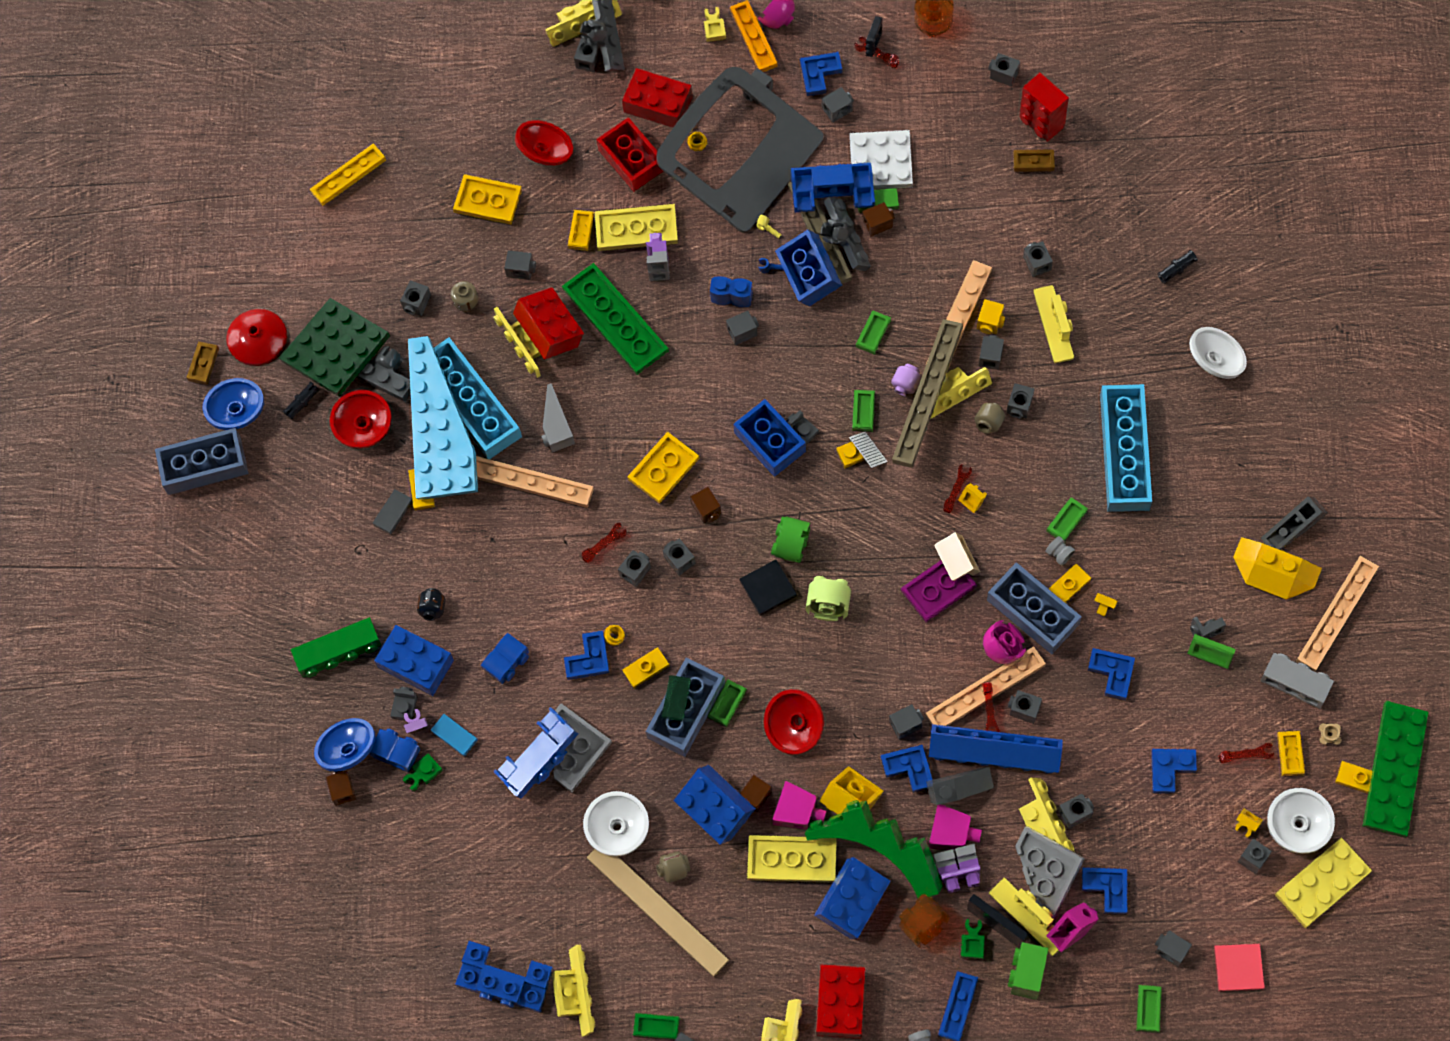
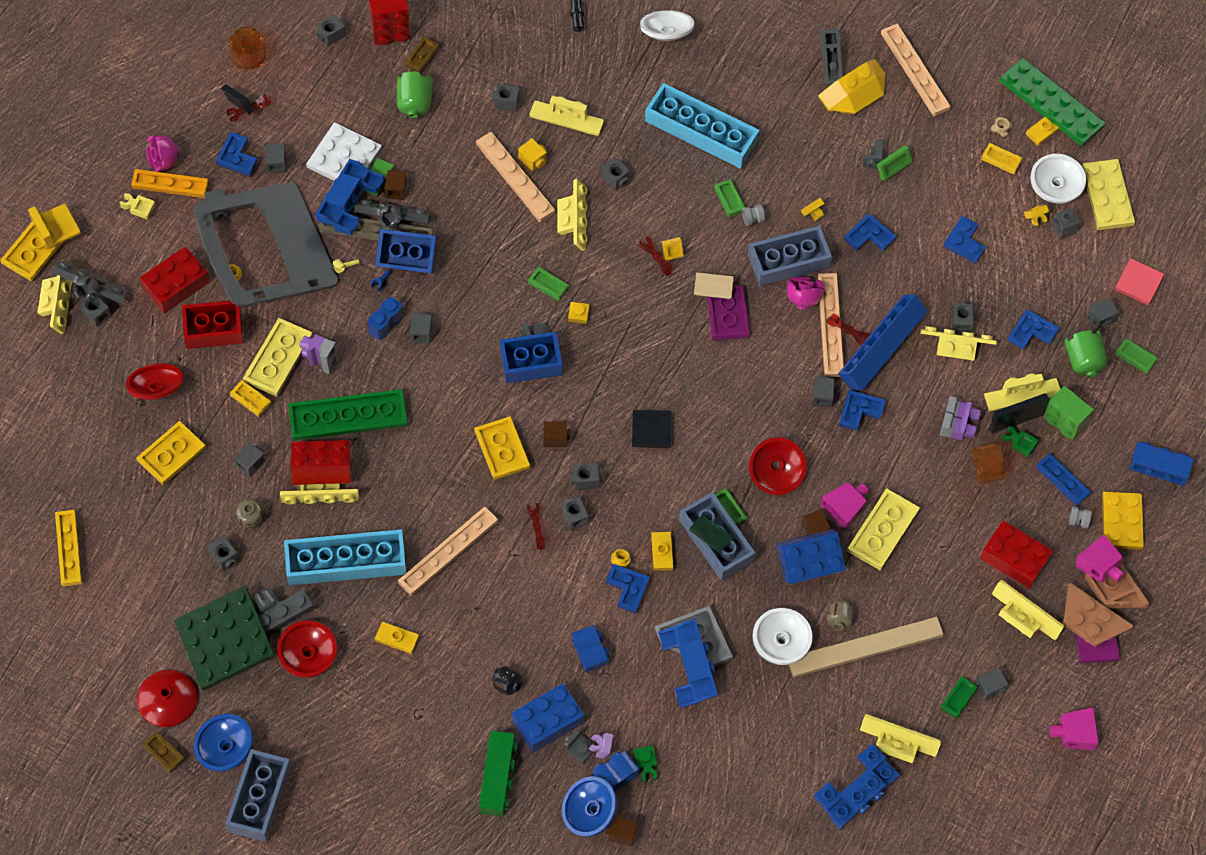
camera: 70 degrees left, 5 degrees down
(301, 400) = (253, 690): black pin -> none
(392, 511) = (402, 670): dark grey tile -> none
(440, 441) = (372, 594): medium azure wing -> none
(454, 735) = (629, 722): dark azure tile -> none
(555, 424) = (412, 506): light grey slope -> none
(791, 539) = (627, 386): bright green brick -> none
(828, 598) = (692, 388): yellowish green brick -> none
(847, 788) = (859, 461): yellow slope -> none
(852, 898) = (942, 501): blue brick -> none
(868, 449) = (583, 297): white sticker -> none
(873, 332) = (487, 241): bright green tile -> none
(885, 837) = (911, 450): green arch -> none
(906, 379) = (545, 238): lavender head -> none
(927, 393) = (572, 227): dark tan plate -> none
(952, 829) = (926, 407): dark pink torso -> none
(959, 785) = (897, 384): dark grey slope -> none
(980, 178) = (414, 94): none -> bright green cylinder
(989, 418) = (615, 201): dark tan head -> none
(991, 352) = (562, 170): dark grey brick -> none
(1027, 715) = (864, 299): dark grey brick -> none
(1047, 868) = (996, 357): light grey plate -> none
(1070, 583) = (781, 221): yellow plate -> none
(1080, 919) = (1052, 359): dark pink torso -> none
(1111, 955) = (1086, 353): none -> bright green cylinder
(1228, 756) = (984, 186): clear red piece -> none
(1297, 680) = (950, 122): light grey brick -> none

